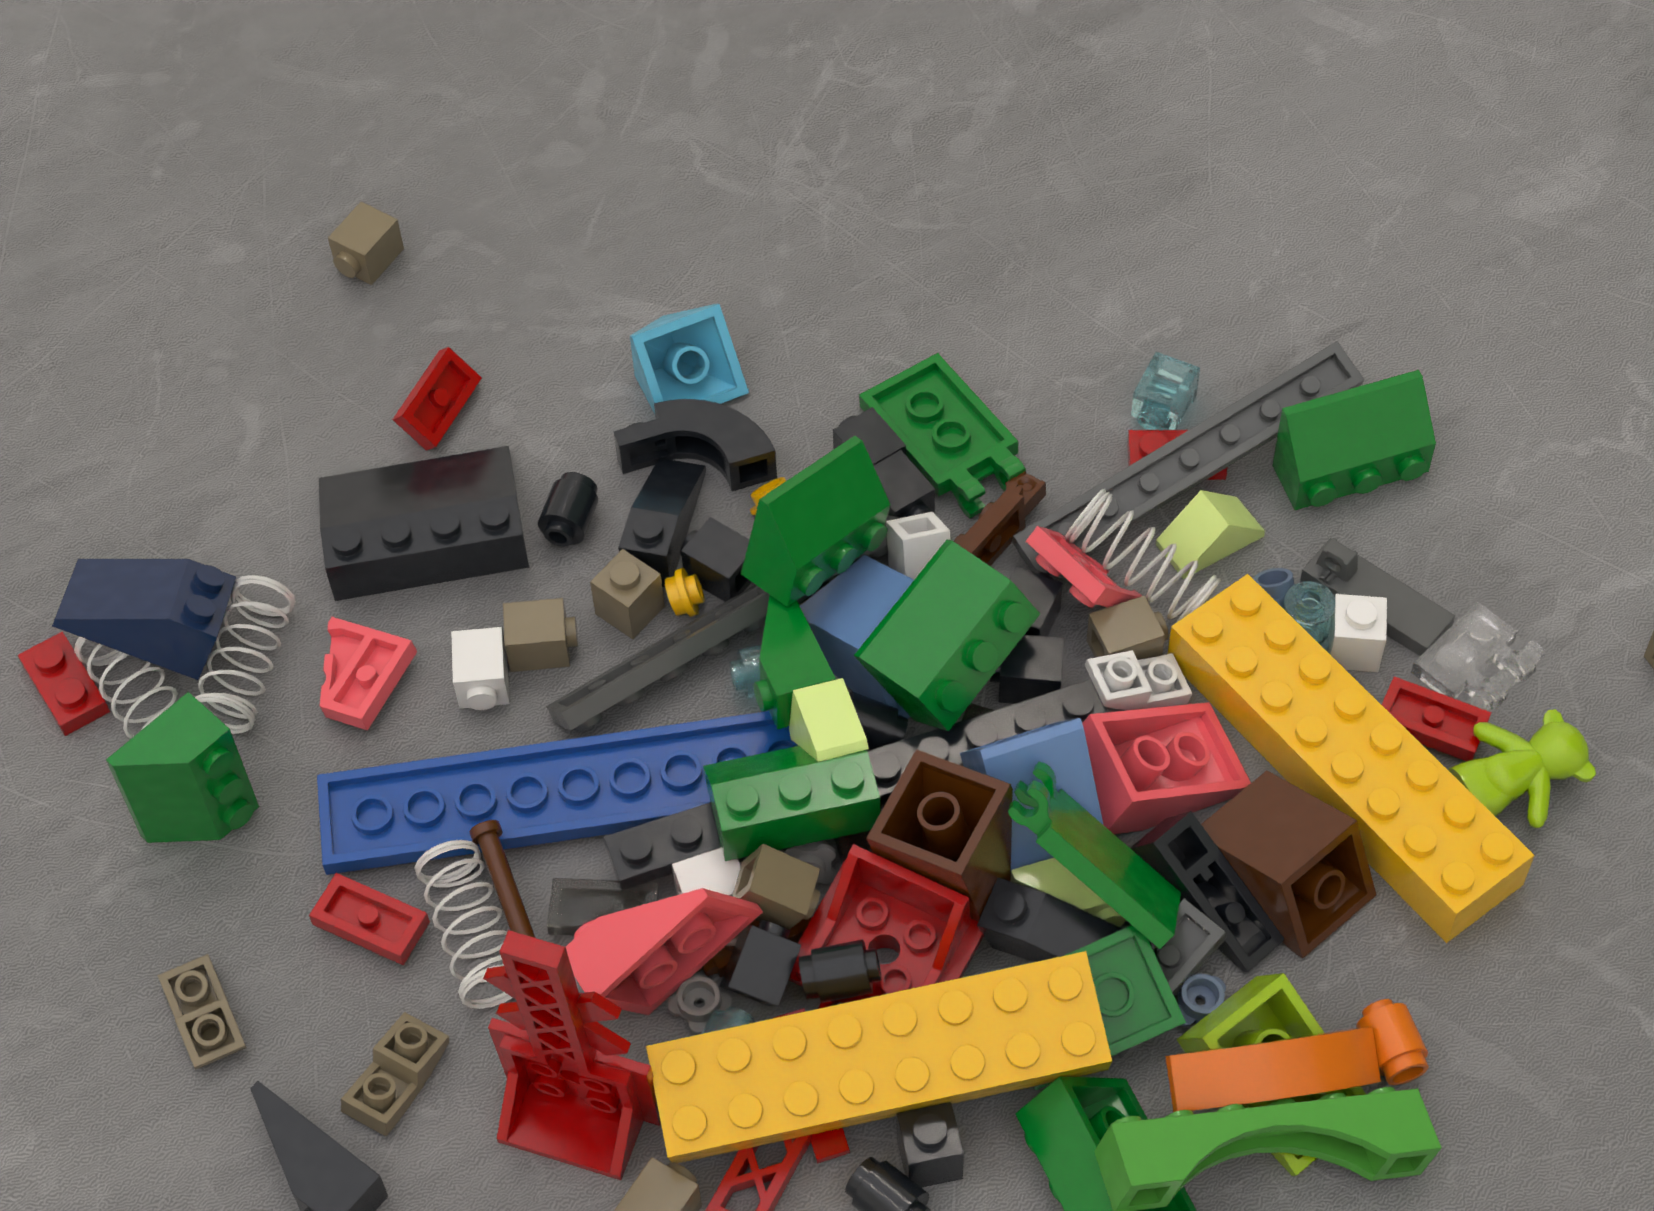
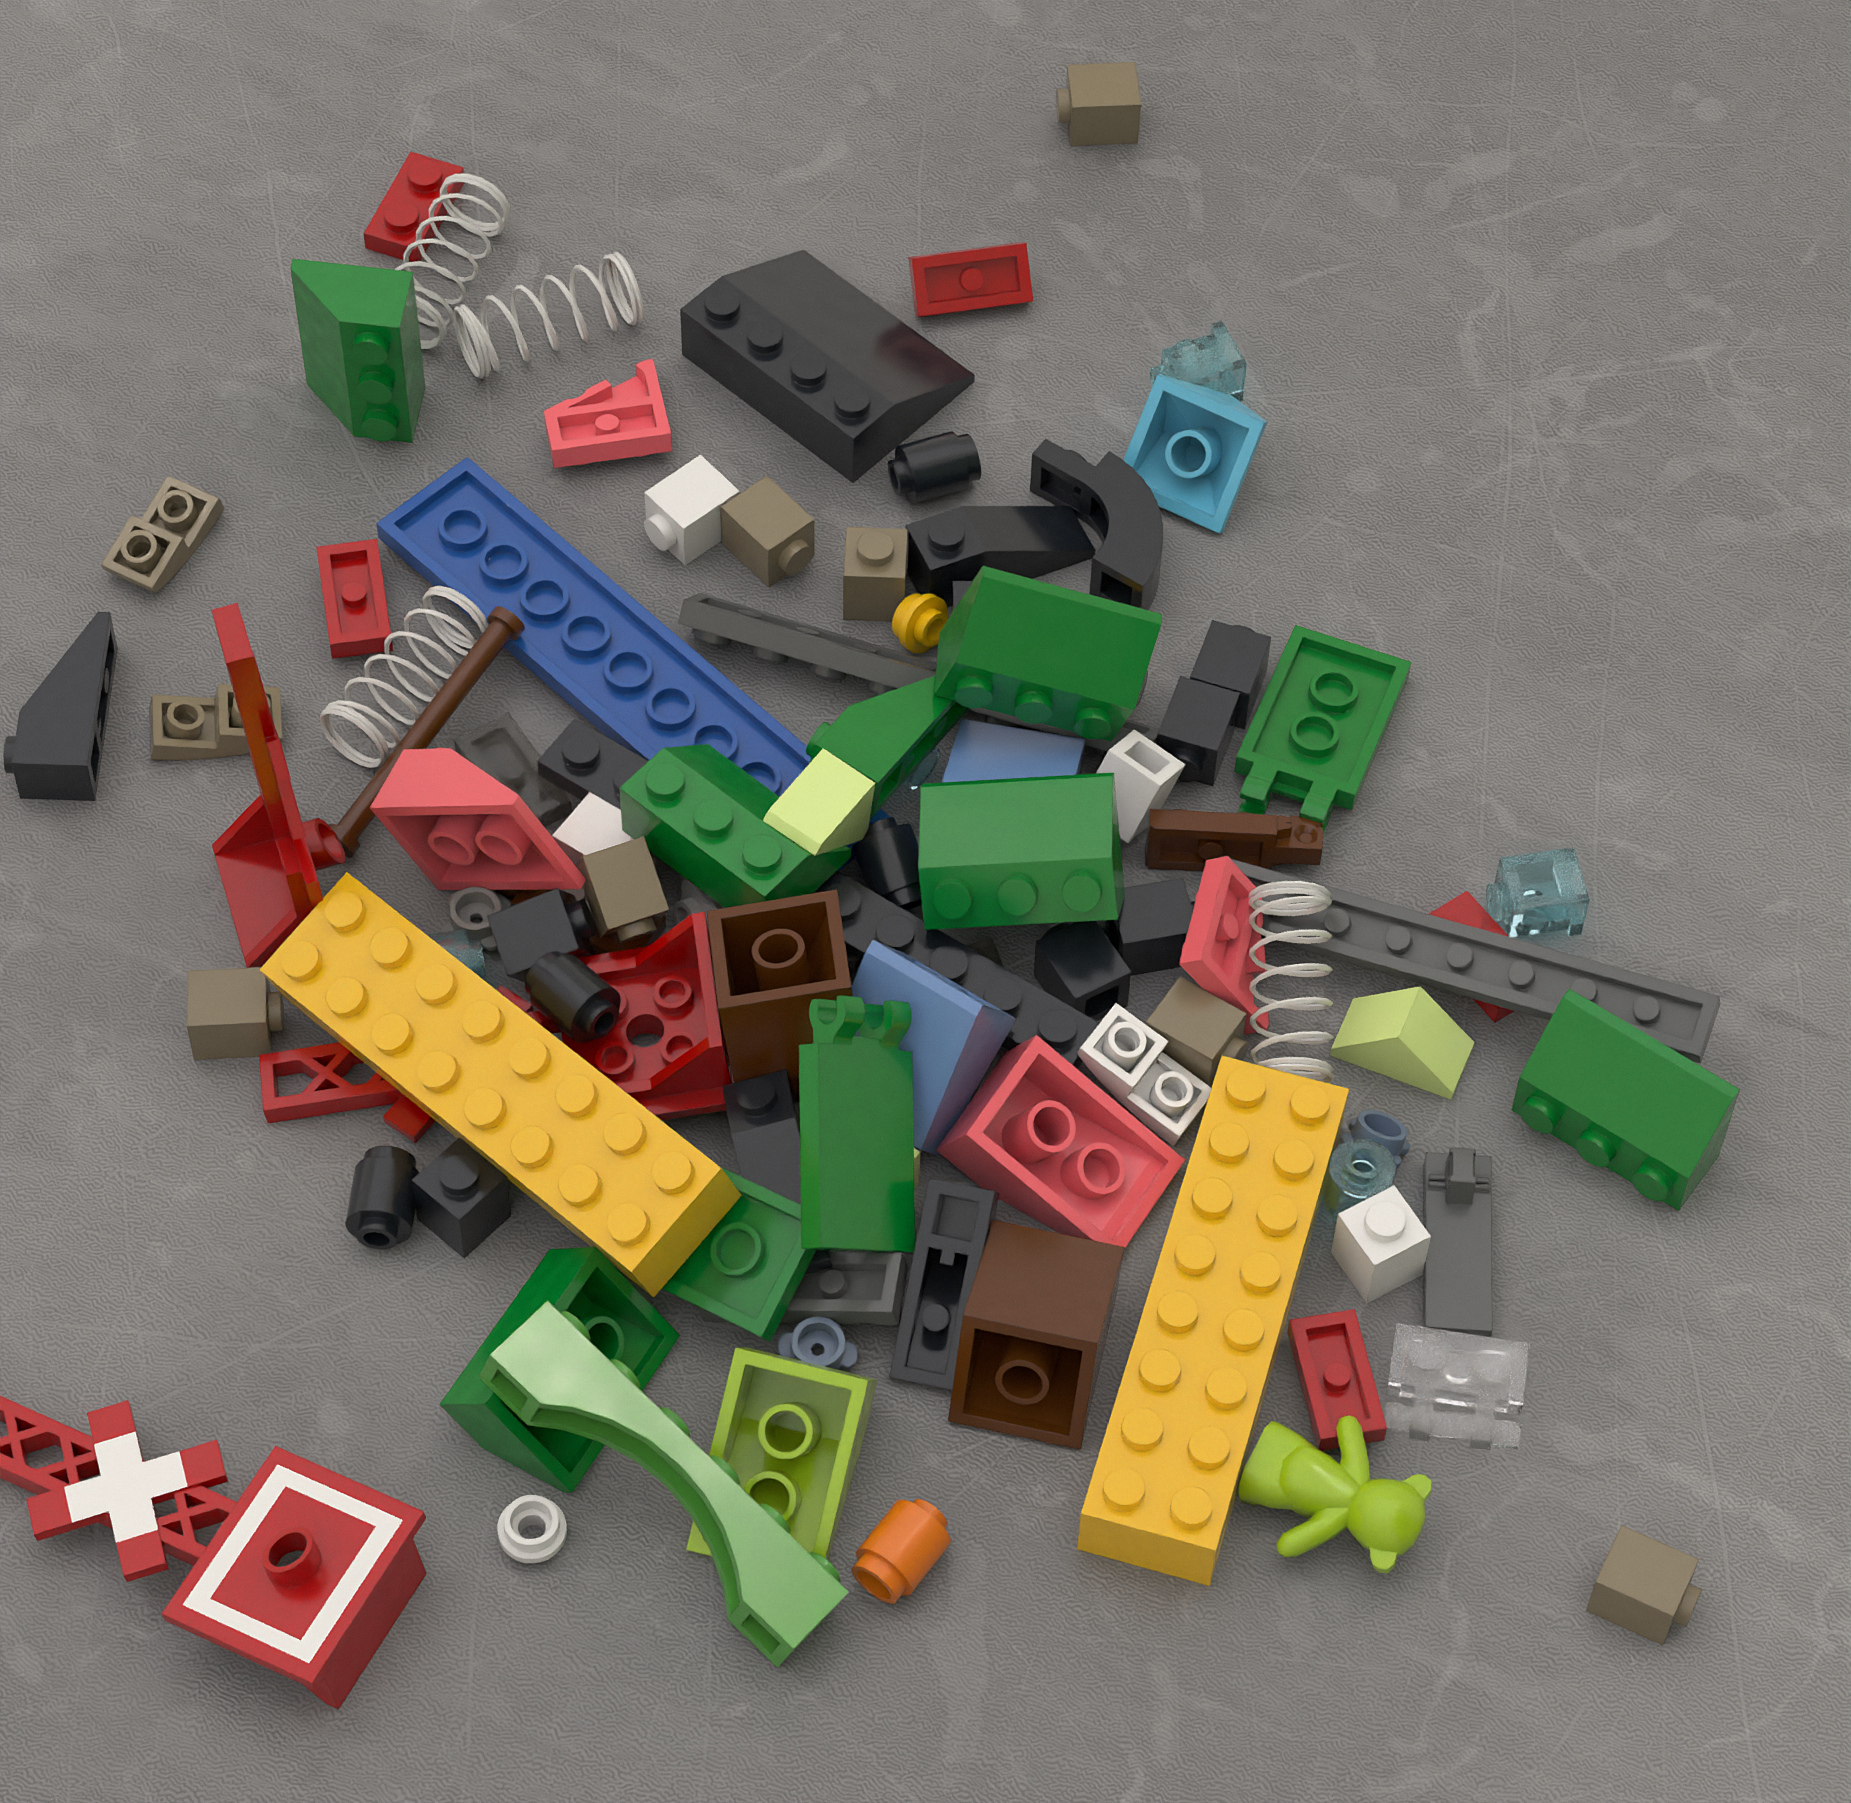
camera: 50 degrees right, 0 degrees up
(148, 609) = (519, 205): dark blue slope -> none
(626, 313) = (1206, 362): none -> clear light blue brick
(1273, 1069) = (763, 1444): orange slope -> none

